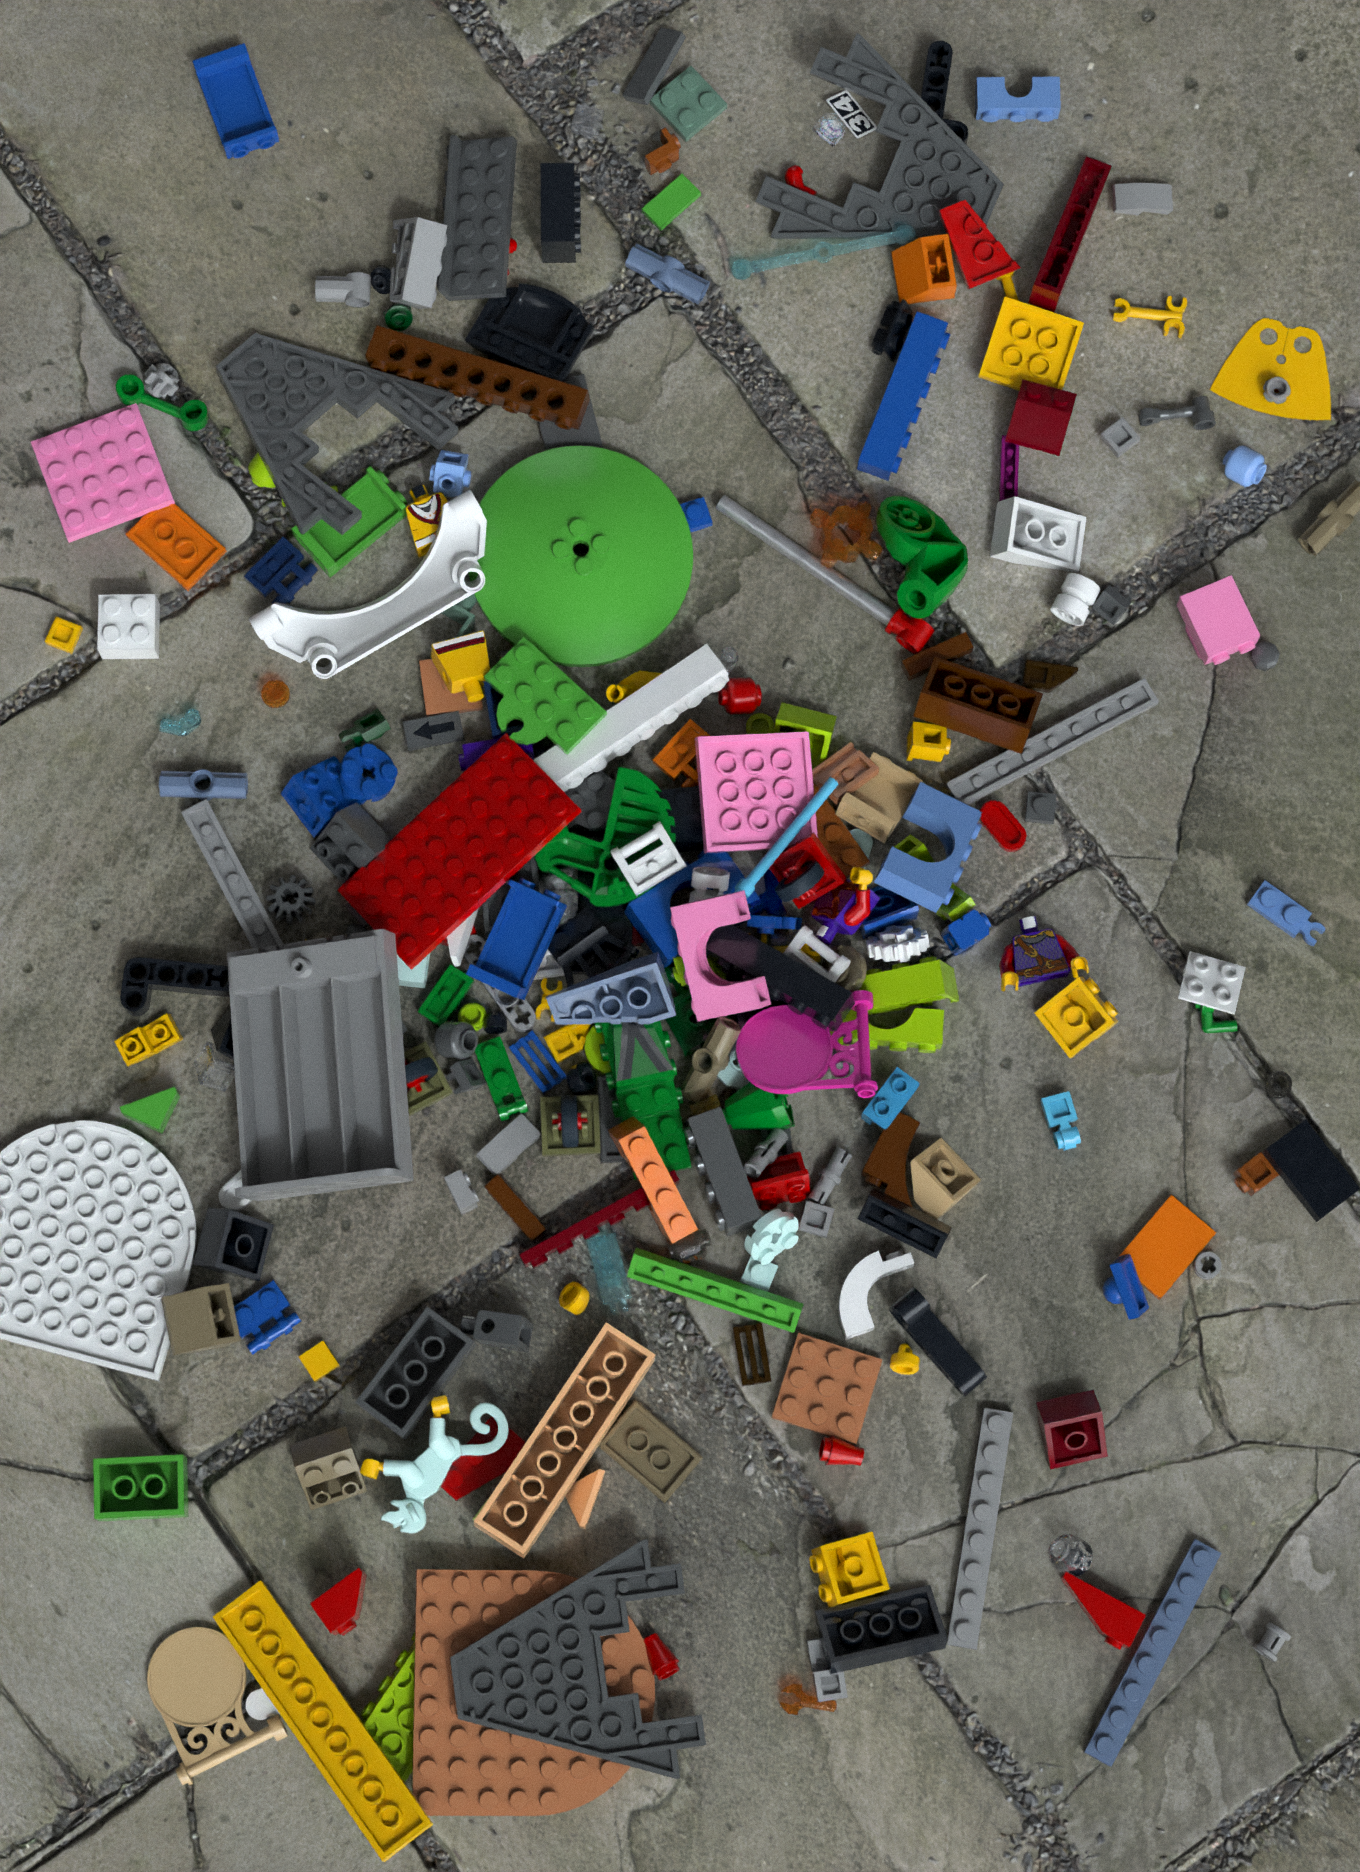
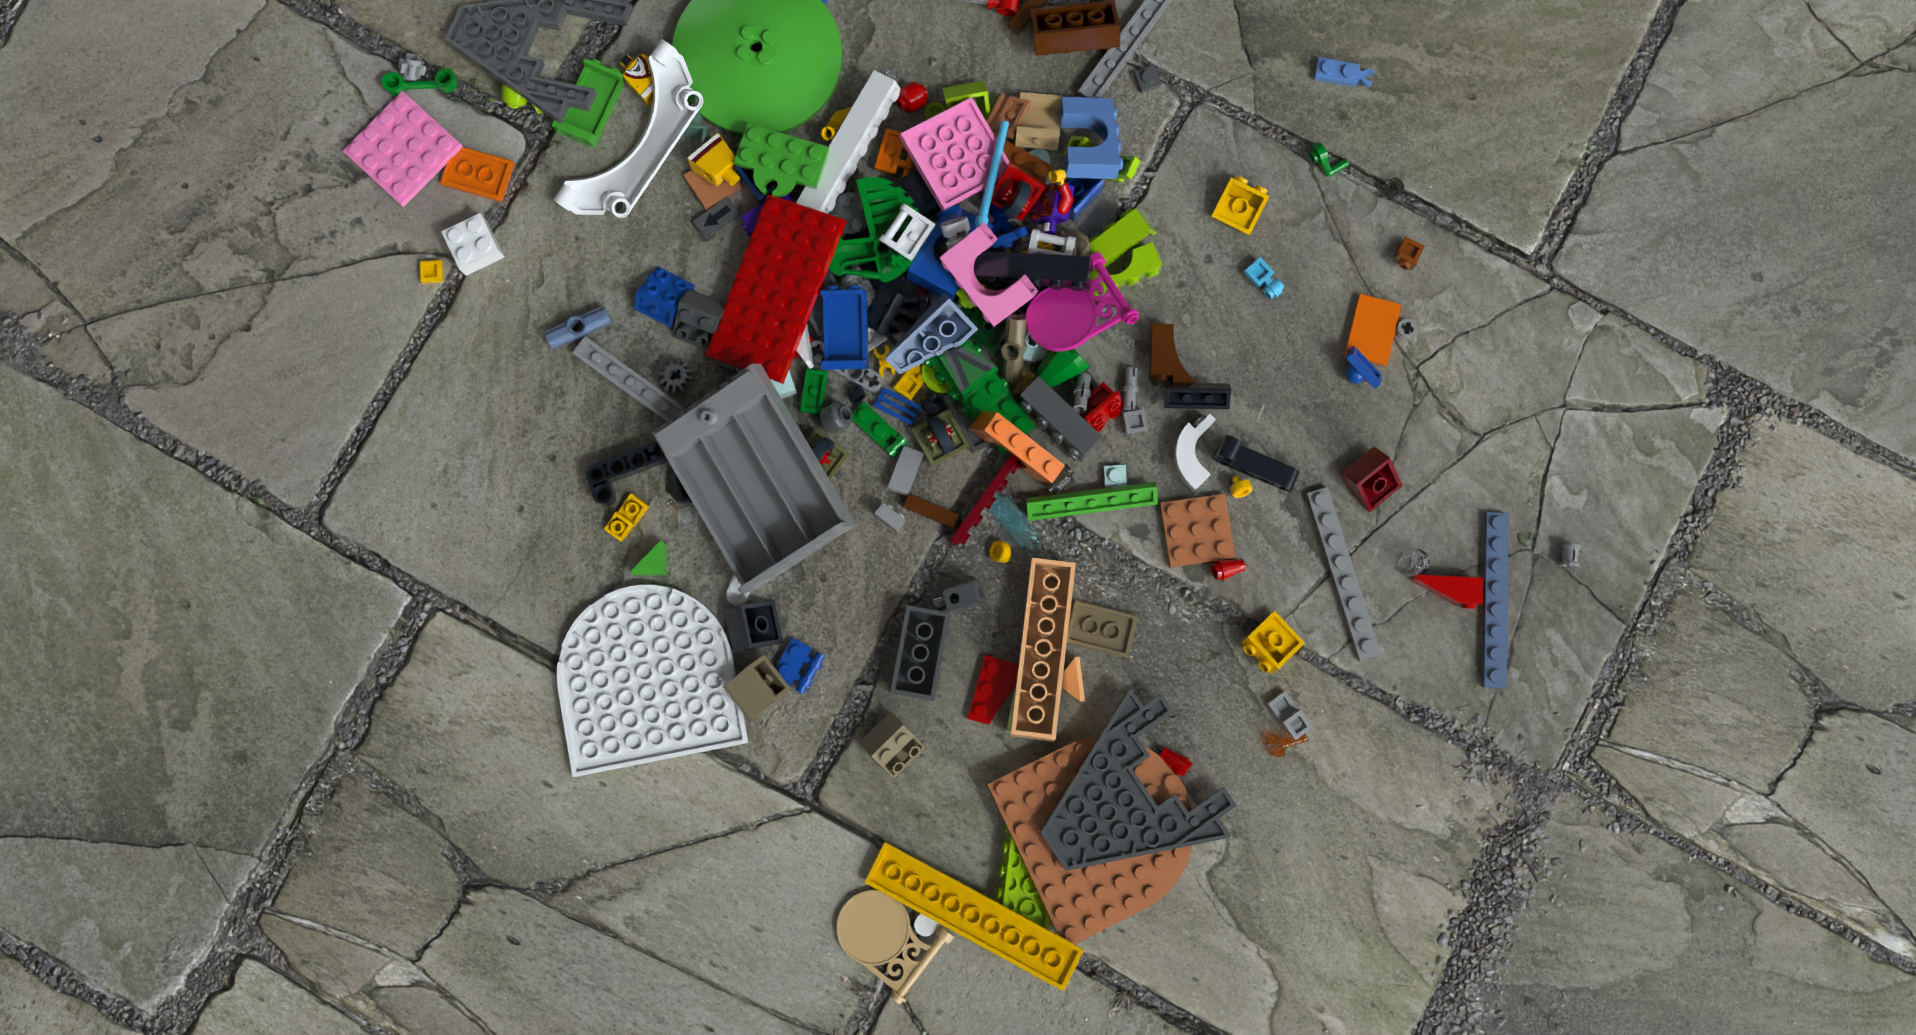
camera: 25 degrees left, 5 degrees up
(140, 1487) = (772, 820): bright green brick -> none
(182, 727) = (544, 295): clear light blue arm -> none
(275, 566) = (553, 158): dark blue plate -> none
(275, 694) = (596, 243): clear orange plate -> none
(319, 1361) = (850, 676): yellow tile -> none
(342, 1603) = (948, 832): red slope -> none
(366, 728) = (670, 237): dark green plate -> none
(374, 760) = (686, 256): blue plate -> none
(428, 1471) = (962, 712): light aqua animal -> none
(450, 473) = (641, 38): light blue brick -> none
(467, 1076) = (855, 438): dark grey tile -> none
(473, 1014) = (838, 394): lime plate -> none
(748, 1329) = (1154, 542): dark brown tile -> none
(772, 1235) = (1114, 444): light aqua plate -> none
(880, 1629) = (1312, 672): black slope -> none
(890, 1099) = (1148, 317): dark azure bracket -> none
(897, 943) = (1100, 212): white gear -> none
(927, 742) = (1052, 69): yellow brick -> none
(940, 1179) = (1204, 356): tan slope -> none
(966, 931) = (1141, 183): blue brick -> none
(1002, 826) = (1129, 102): red tile -> none
(1038, 957) = (1196, 177): torso -> none
(1211, 982) = (1319, 140): white hinge -> none
(1311, 1170) = (1443, 234): black tile -> none

